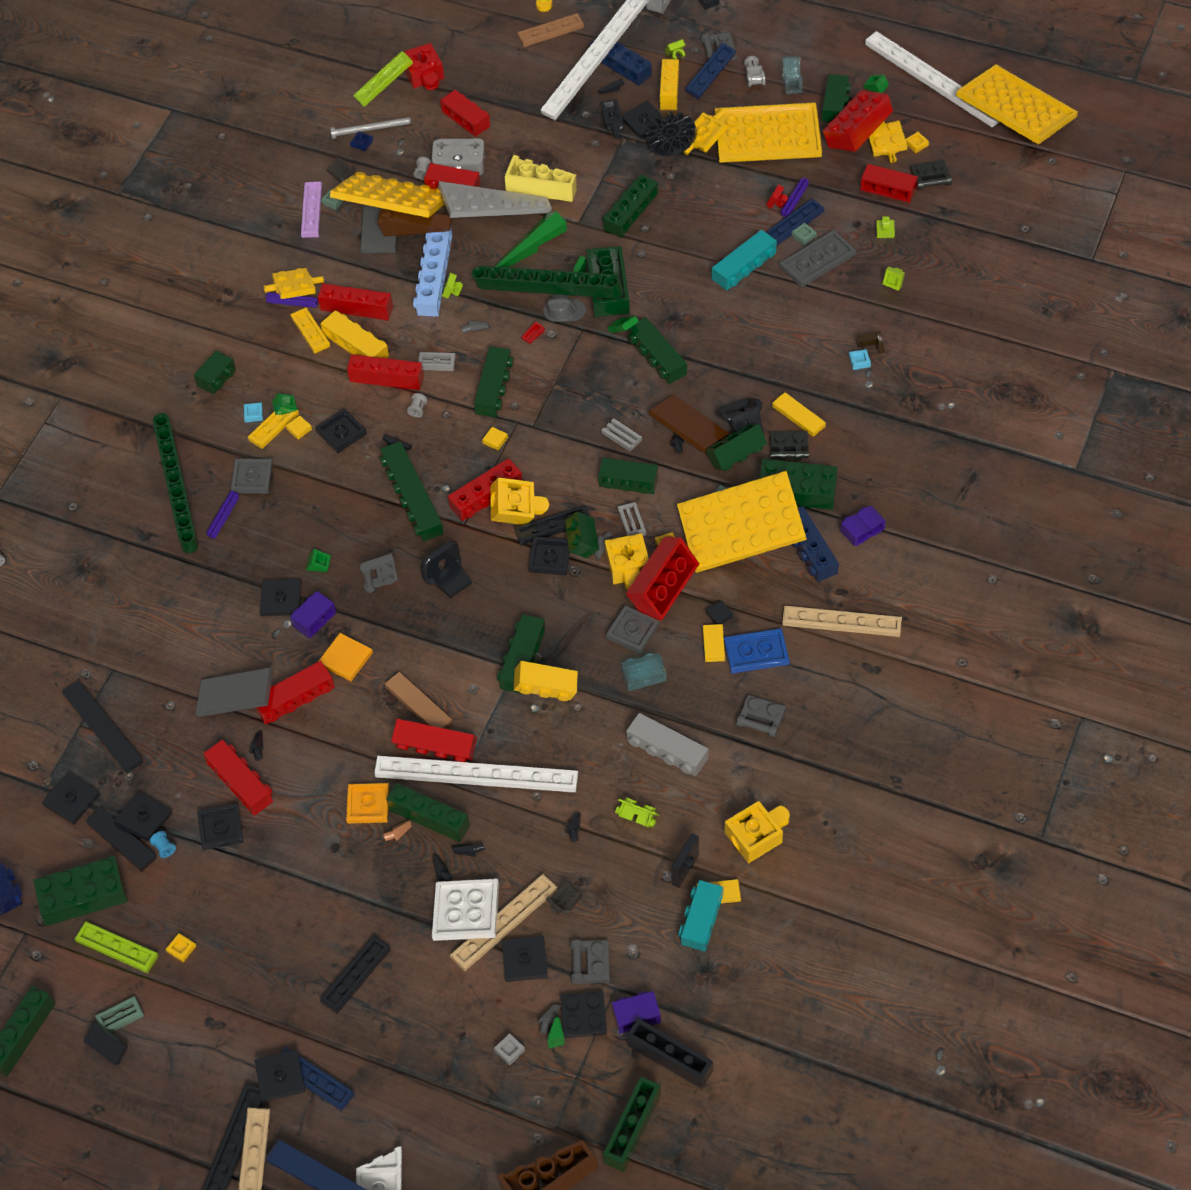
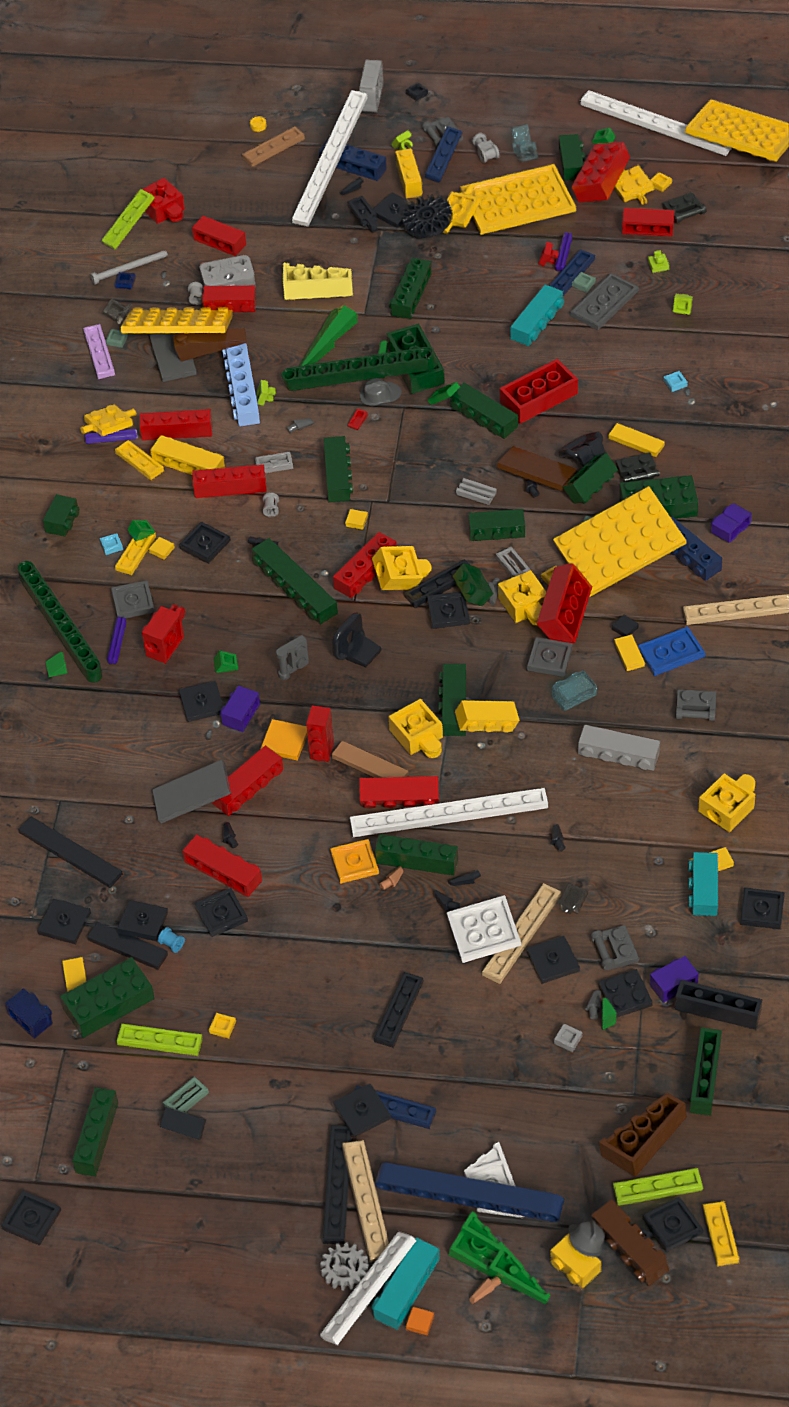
camera: 15 degrees left, 5 degrees down
(60, 856) = (74, 972): none -> yellow tile
(157, 527) = (56, 665): none -> green slope
(266, 518) = (163, 633): none -> red brick
(374, 662) = (320, 733): none -> red brick
(474, 678) = (417, 729): none -> yellow brick
(479, 201) = (267, 311): light grey wing -> none
(629, 809) = (619, 811): lime hinge -> none
(685, 860) = (674, 839): black plate -> none
(717, 341) = (539, 390): none -> red brick
(753, 955) = (762, 908): none -> black tile
(871, 339) = (684, 359): dark brown tile -> none

